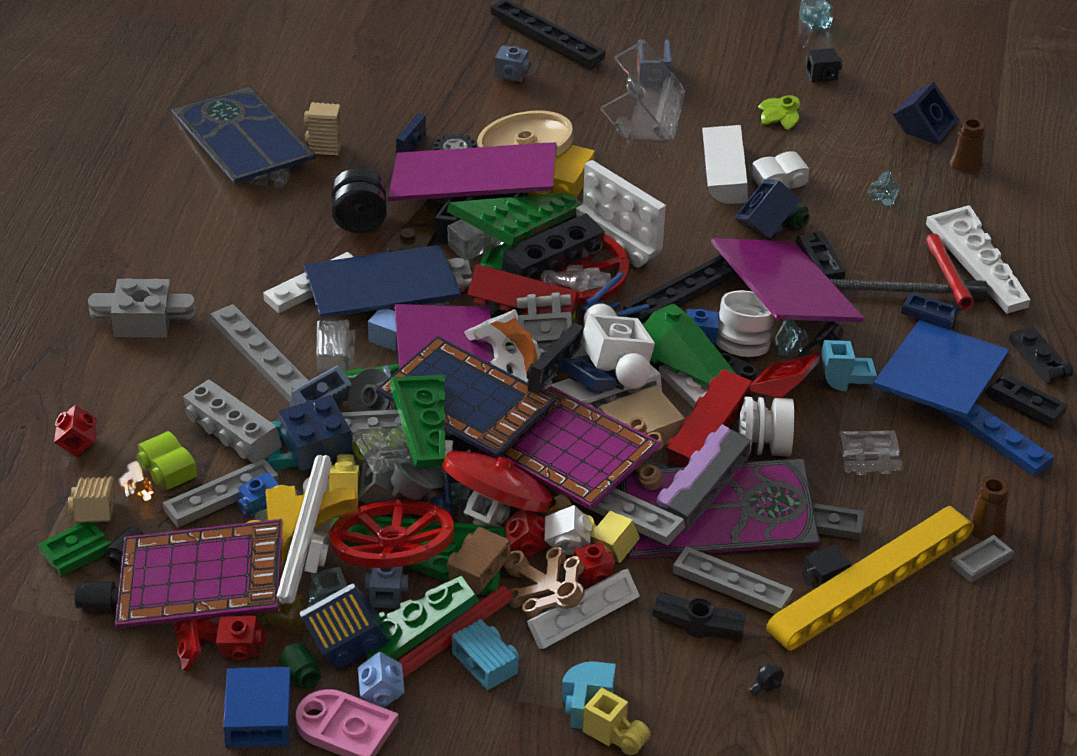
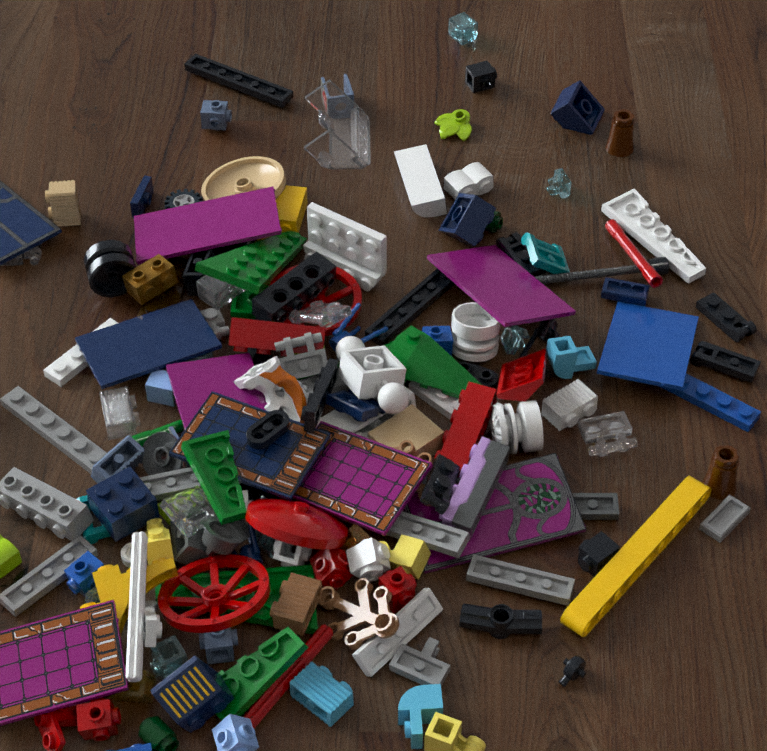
camera: 10 degrees left, 5 degrees up
(399, 217) = (150, 279): none -> pearl gold brick
(488, 381) = (265, 431): none -> black plate
(600, 645) = (420, 666): none -> light grey plate
(664, 466) = (440, 484): none -> black plate
(834, 414) = (569, 405): none -> white brick
(846, 258) = (545, 255): none -> teal plate

